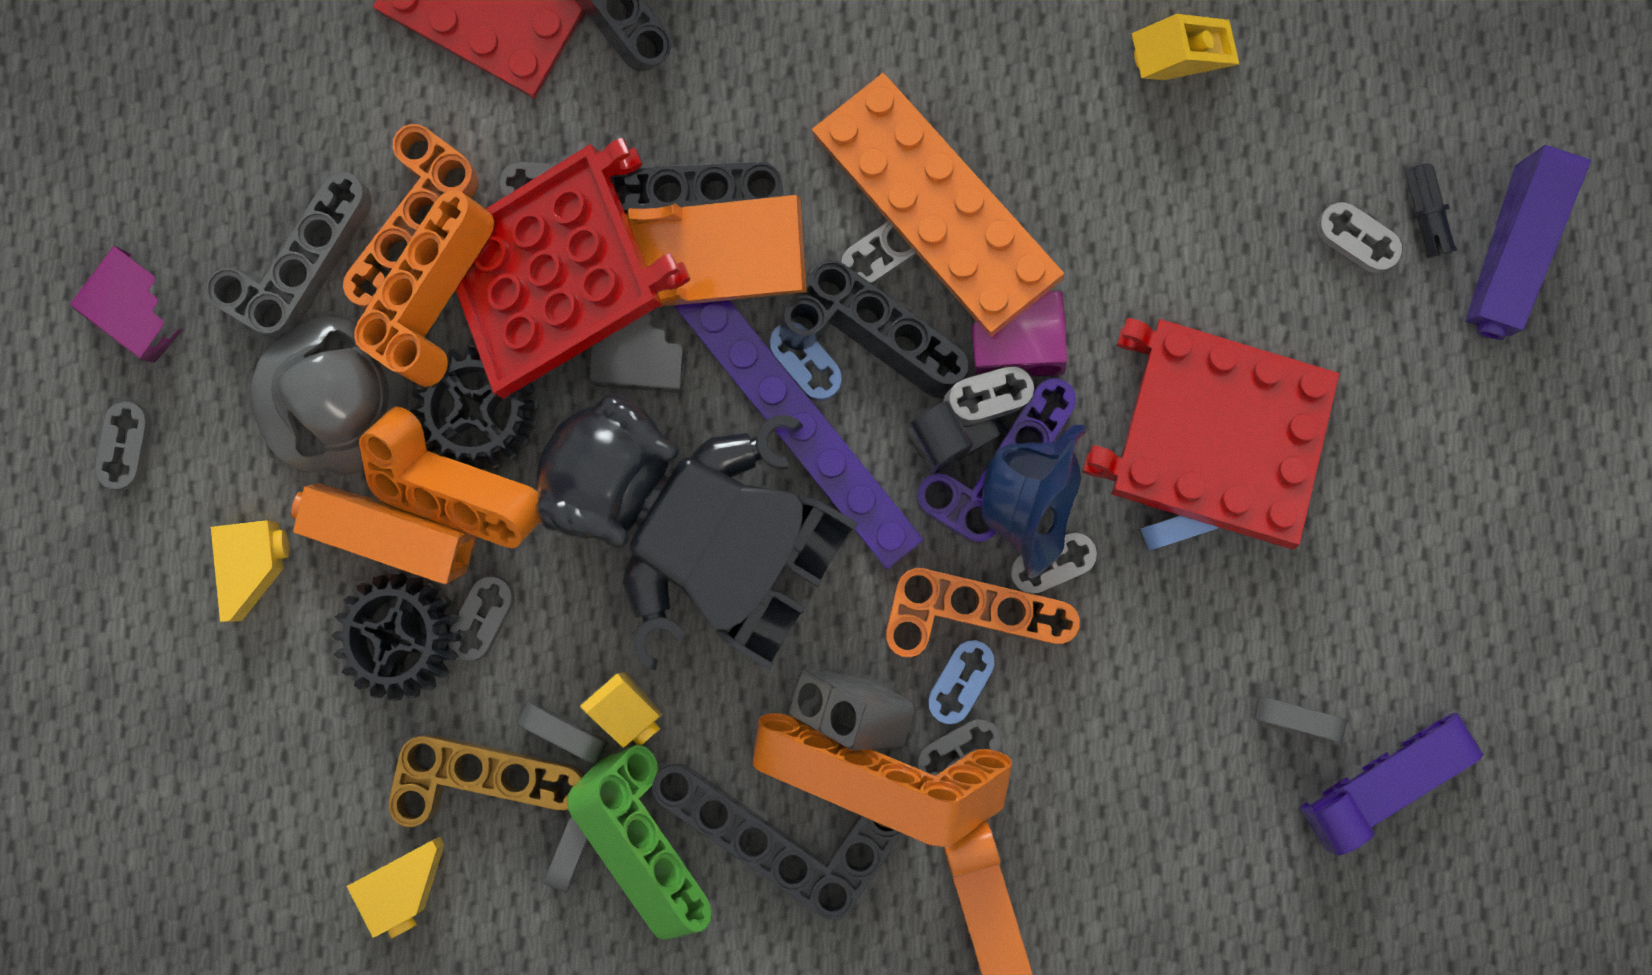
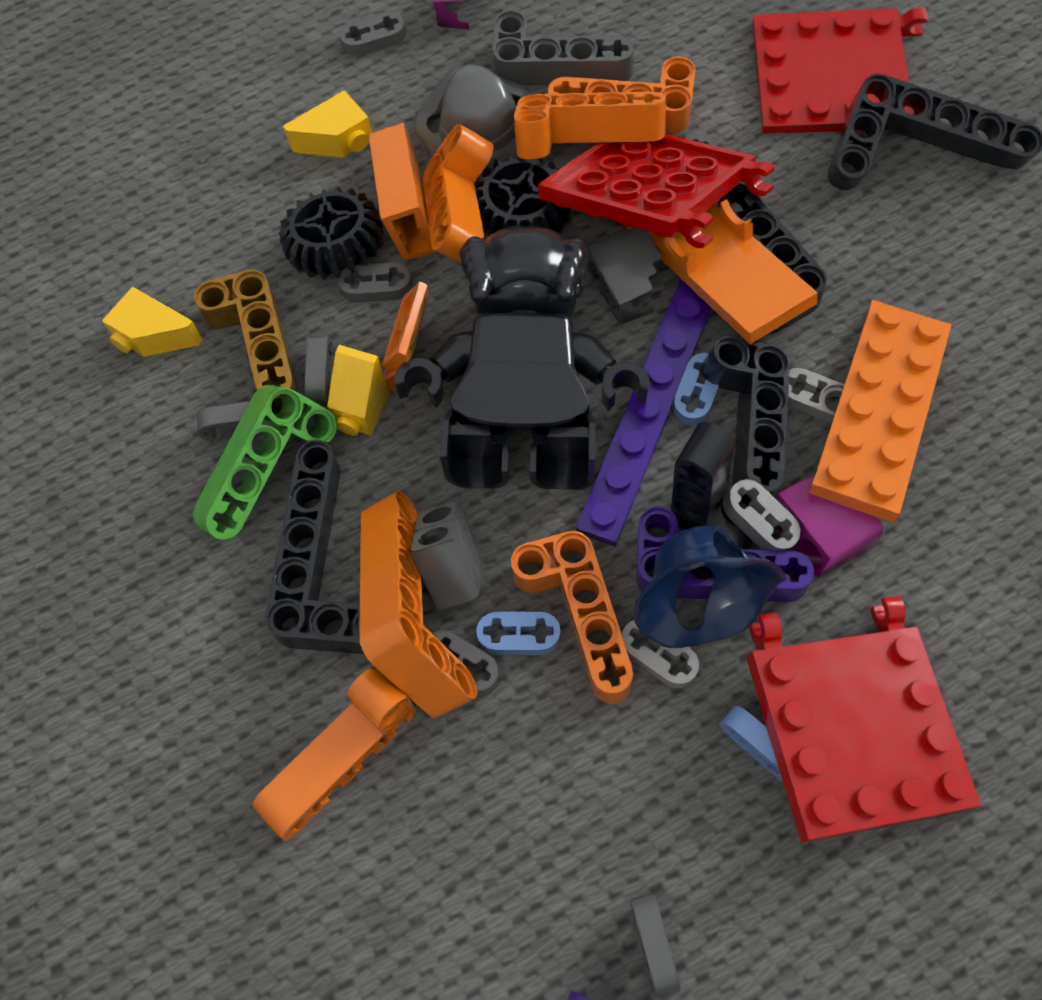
camera: 65 degrees right, 20 degrees down
(588, 628) = (405, 332): none -> orange slope

